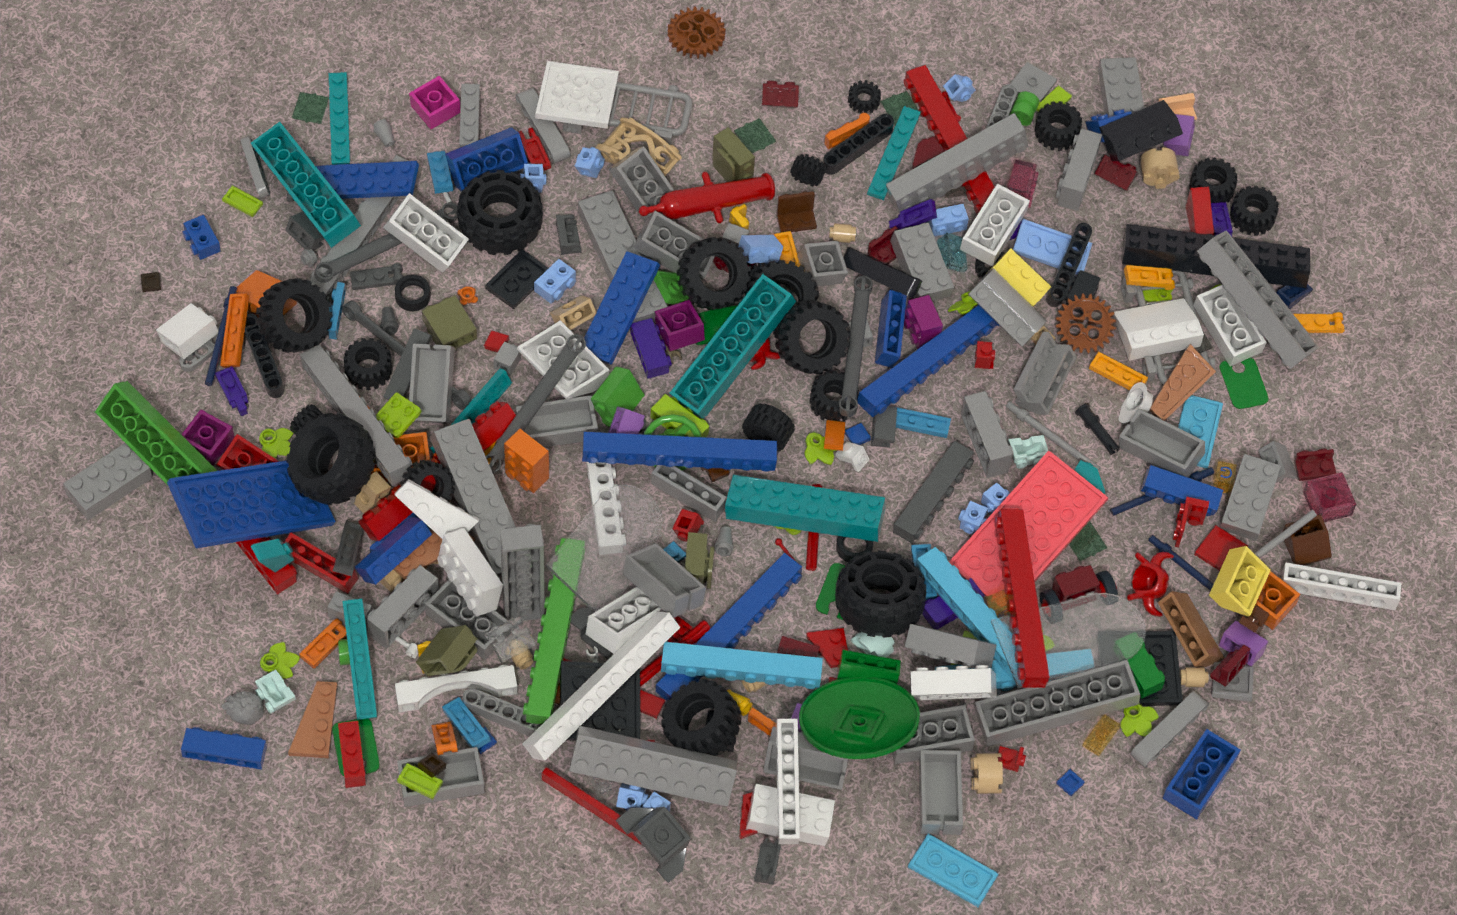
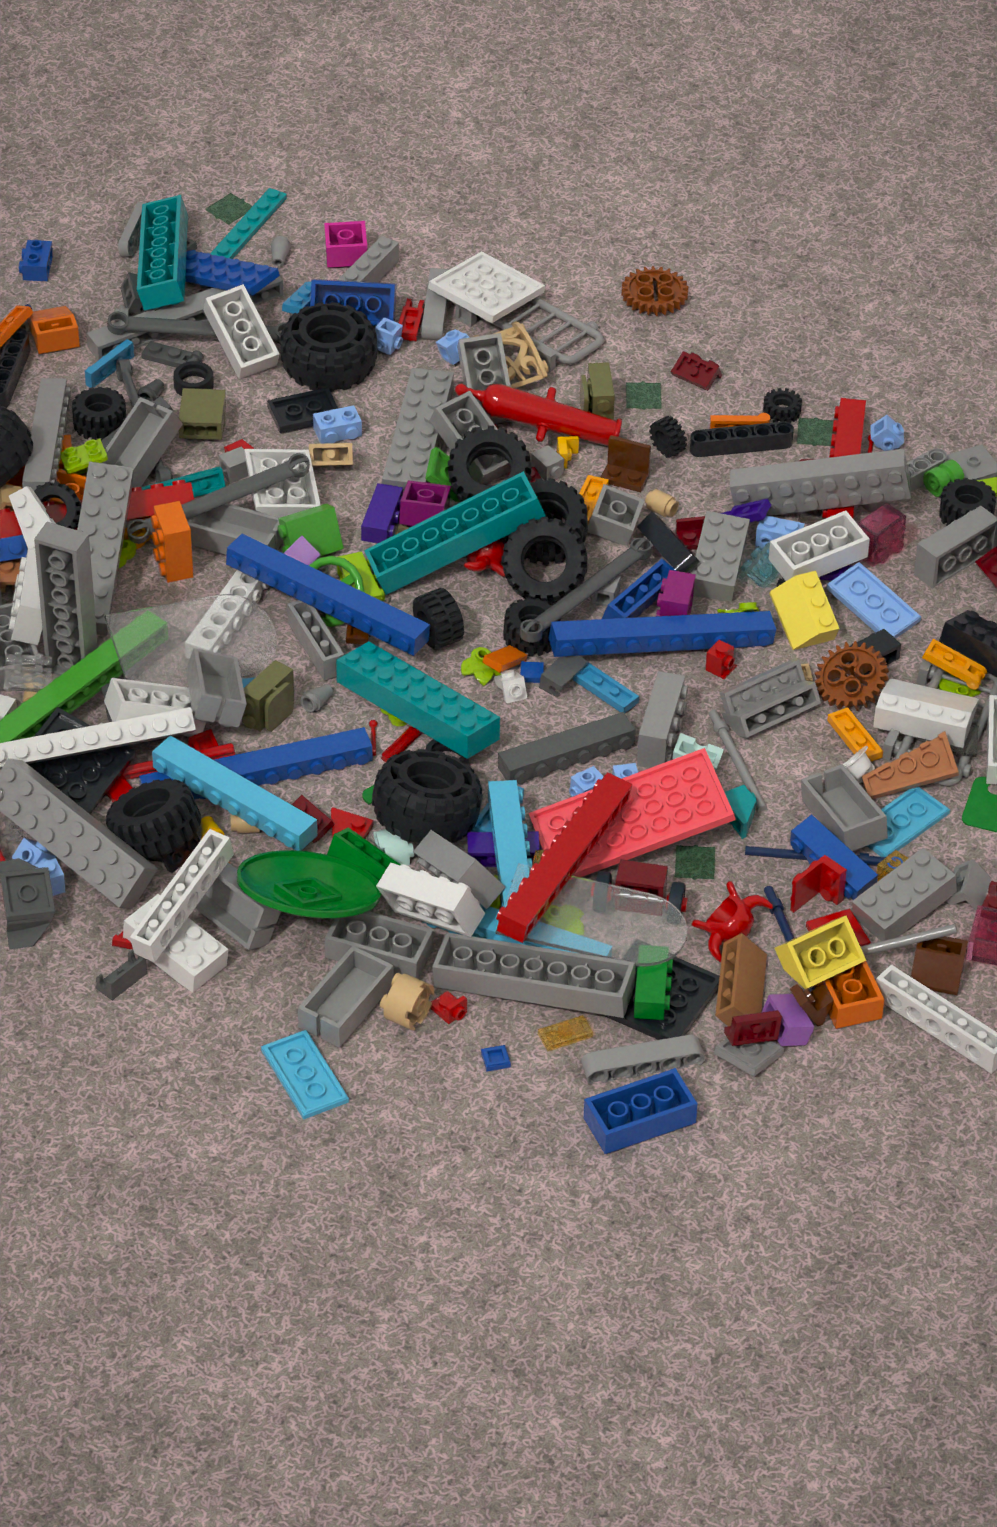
camera: 35 degrees right, 15 degrees down
(242, 201) = (101, 251): lime tile -> none
(315, 309) = (69, 317): black tyre -> none
(467, 291) = (244, 403): orange plate -> none
(568, 234) = (383, 395): dark grey hinge -> none
(620, 306) = (376, 462): blue plate -> none
(687, 522) = (297, 662): red brick -> none
(761, 248) = (562, 471): light blue brick -> none
(894, 152) = (791, 452): teal plate -> none
(1007, 307) = (774, 621): light grey brick -> none
(1072, 257) = (881, 611): black beam -> none
(1093, 422) = (790, 764): black pin -> none
(1140, 722) = (615, 1034): lime plate -> none
(1193, 677) = (707, 1026): tan brick -> none

